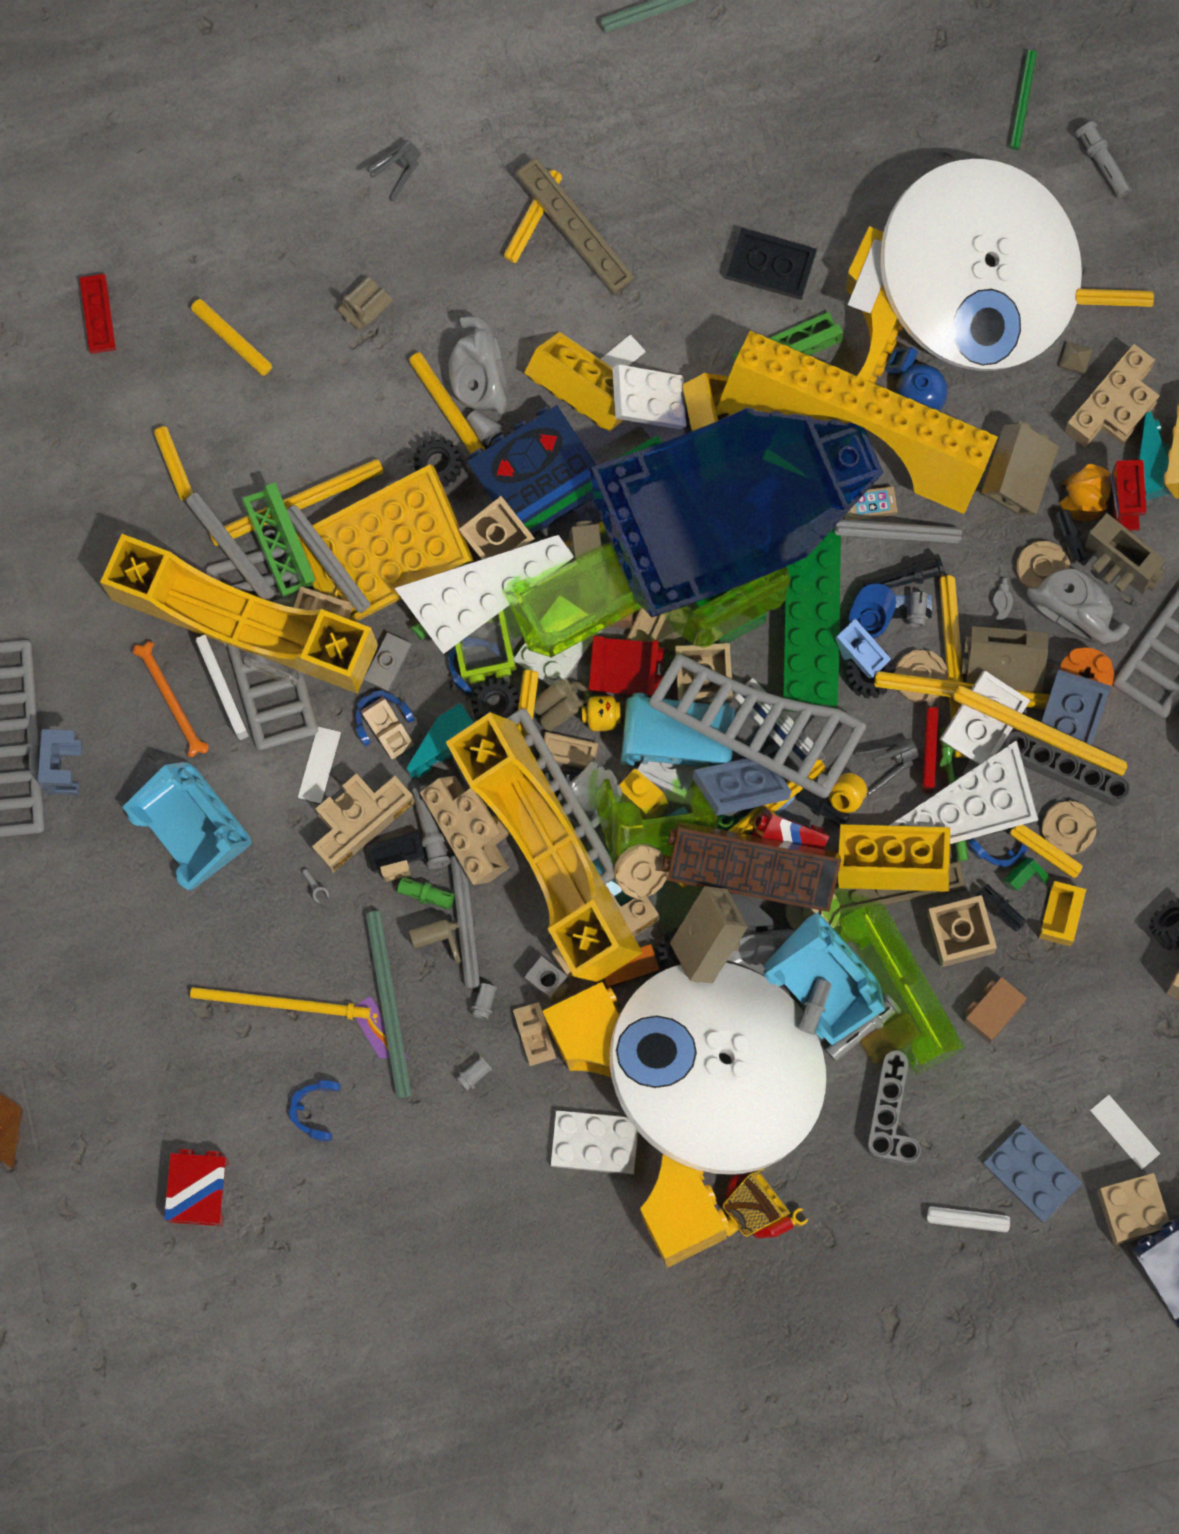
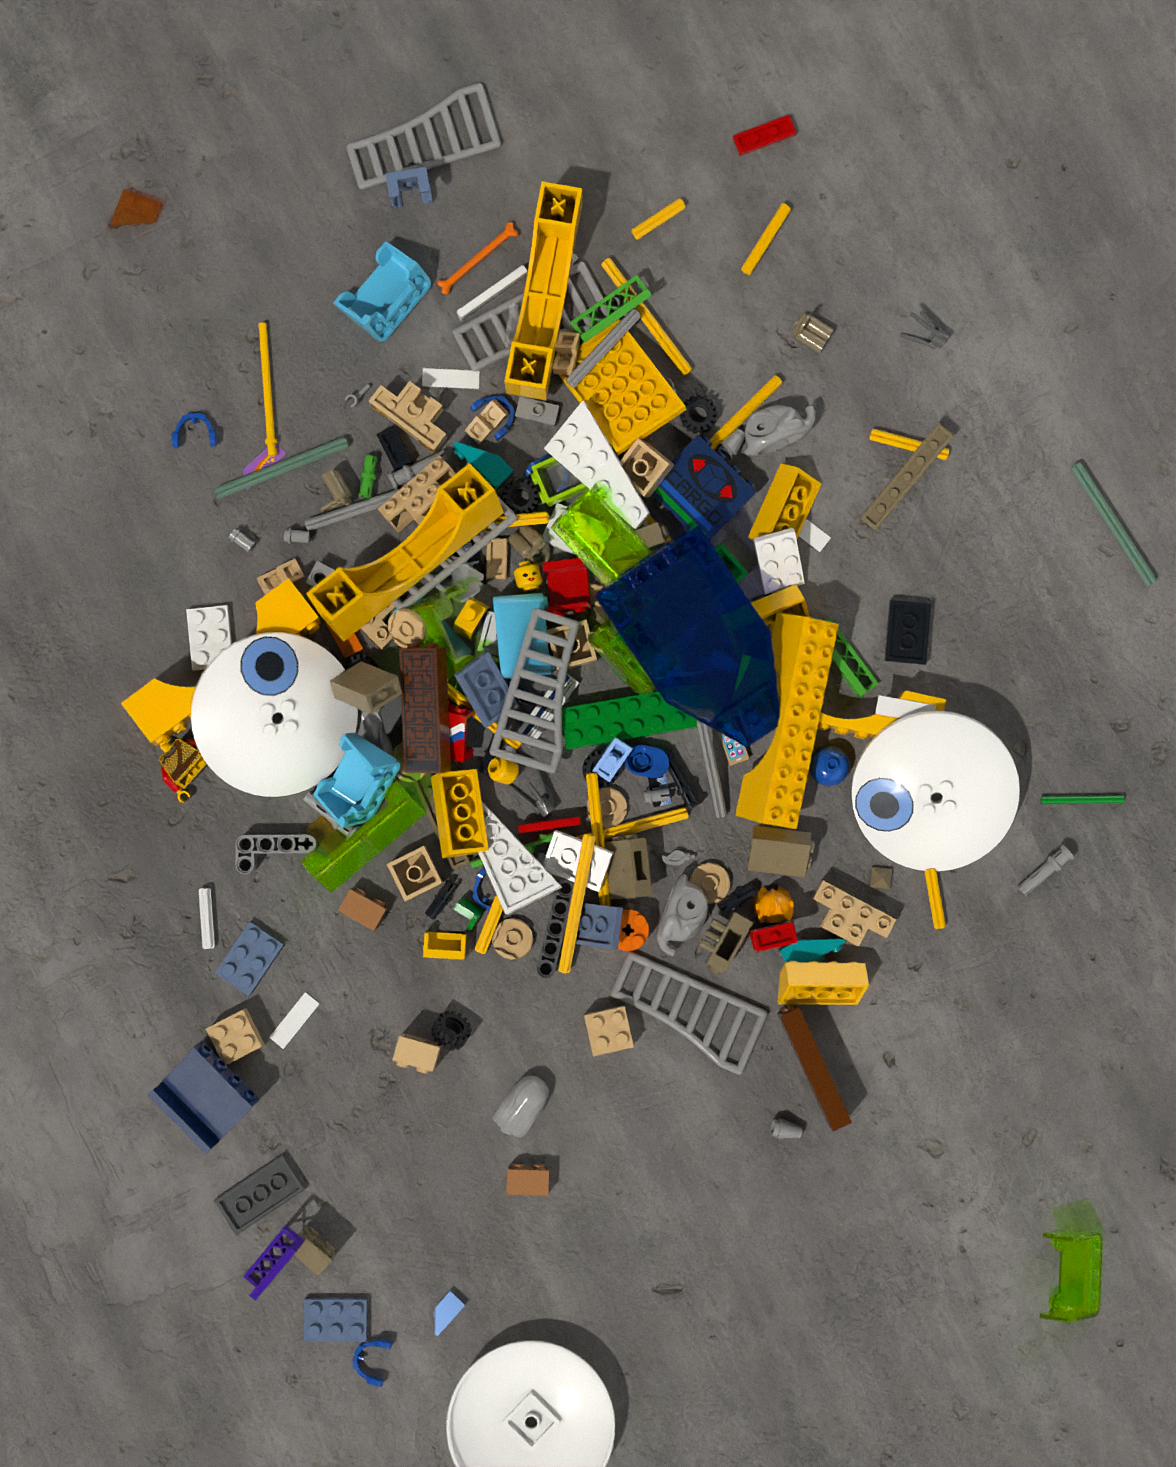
camera: 75 degrees right, 10 degrees up
(195, 1188) = (119, 358): panel -> none
(230, 547) = (599, 274): light grey axle -> none
(395, 871) = (379, 451): tan tile -> none
(815, 1006) = (335, 776): light grey axle -> none
(900, 360) = (850, 745): blue tile -> none

